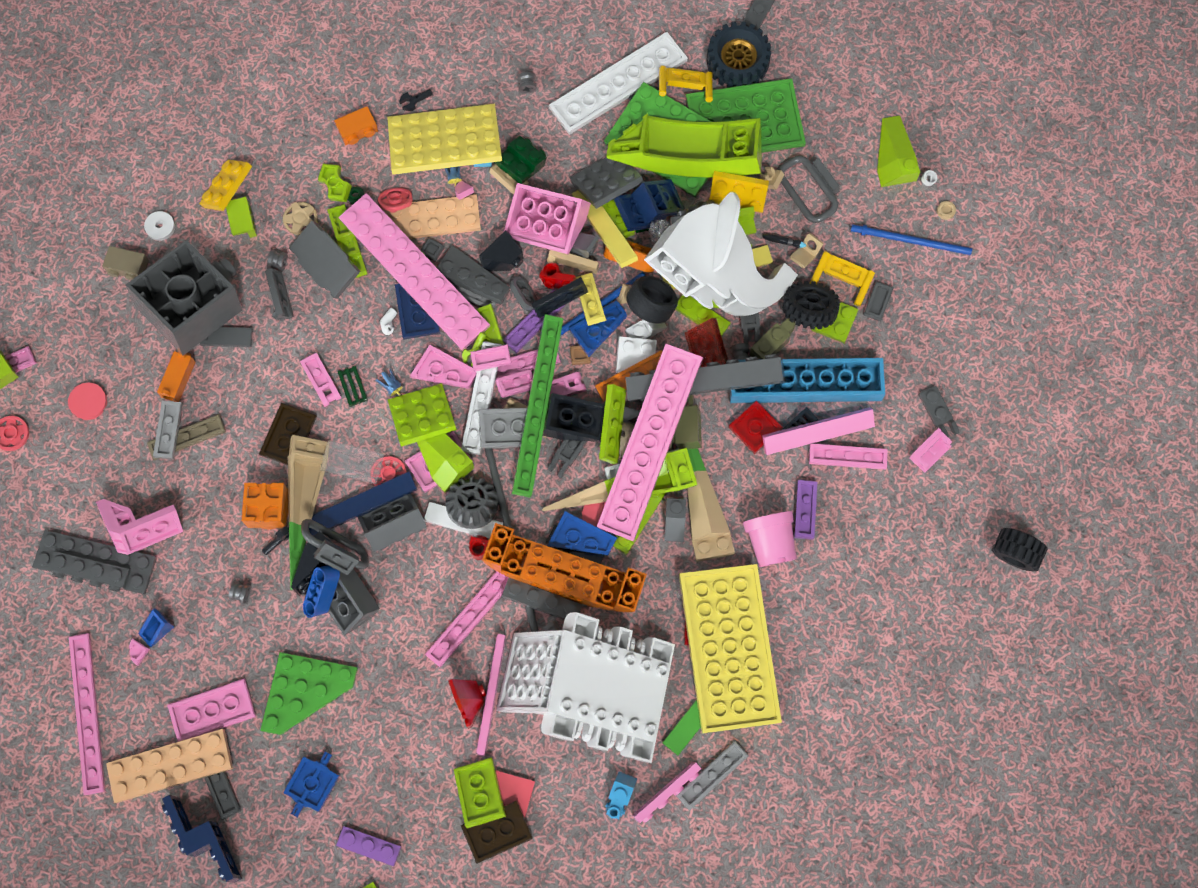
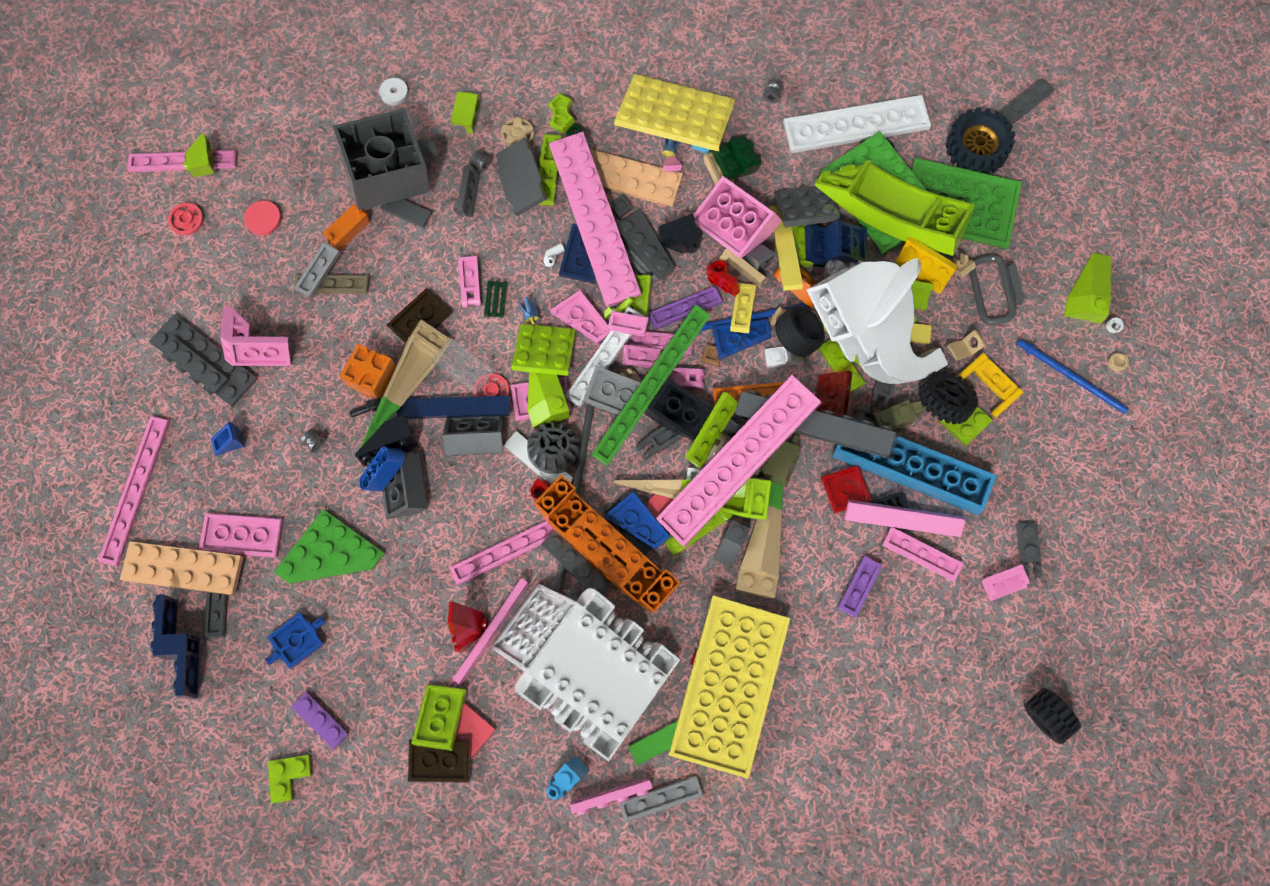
camera: 25 degrees right, 0 degrees up
(124, 263) = (346, 108): dark tan brick -> none
(137, 651) = (202, 454): bright pink tile -> none
(225, 185) = (464, 77): yellow plate -> none
(331, 553) = (404, 441): dark grey bar -> none
(356, 126) = (602, 71): orange brick -> none
(395, 199) = (608, 149): coral wheel -> none
(414, 99) = (664, 68): black bar -> none
(523, 293) = (685, 278): dark grey plate -> none
(559, 297) = (715, 295): black tile -> none
(633, 351) = (762, 371): white wing -> none
(685, 79) = (920, 144): yellow plate -> none
(772, 538) = (815, 600): bright pink piece -> none
(783, 240) = (948, 327): black piece -> none
(878, 301) = (1015, 421): dark grey tile -> none

